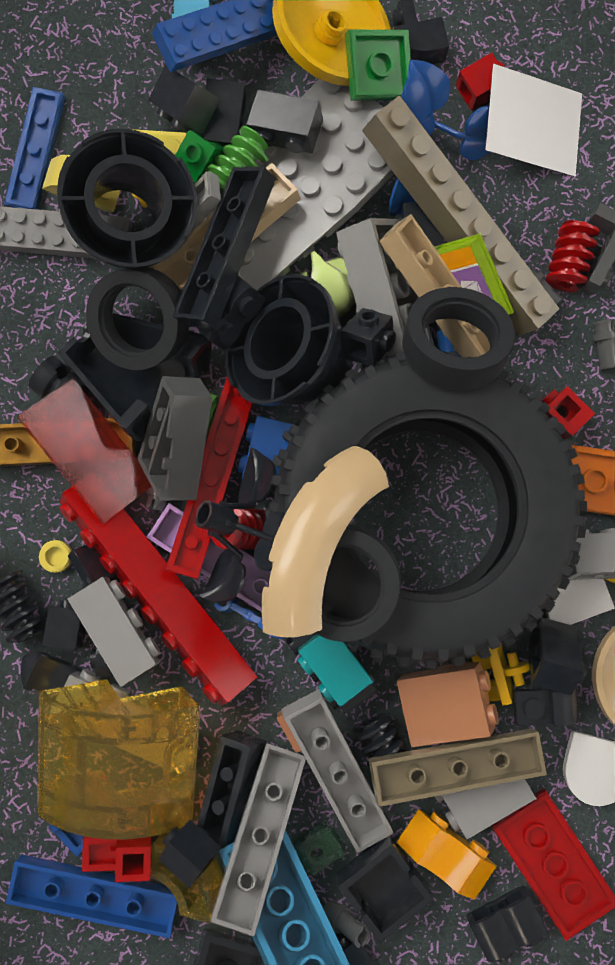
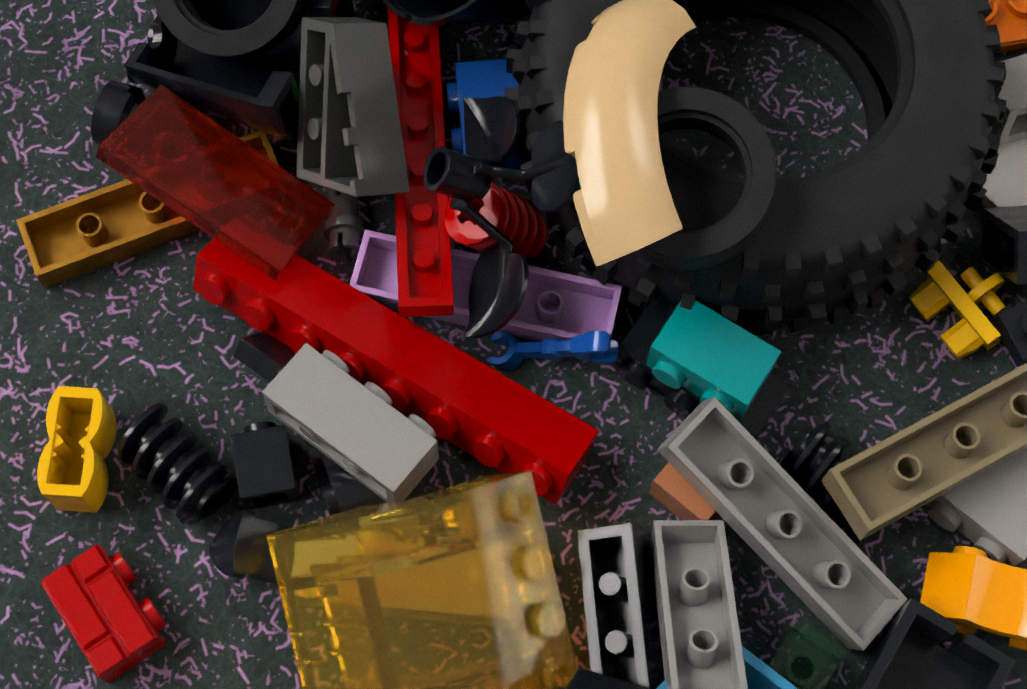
camera: 20 degrees left, 15 degrees down
(54, 556) = (212, 374): light yellow tile -> none
(447, 704) = (906, 363): nougat brick -> none

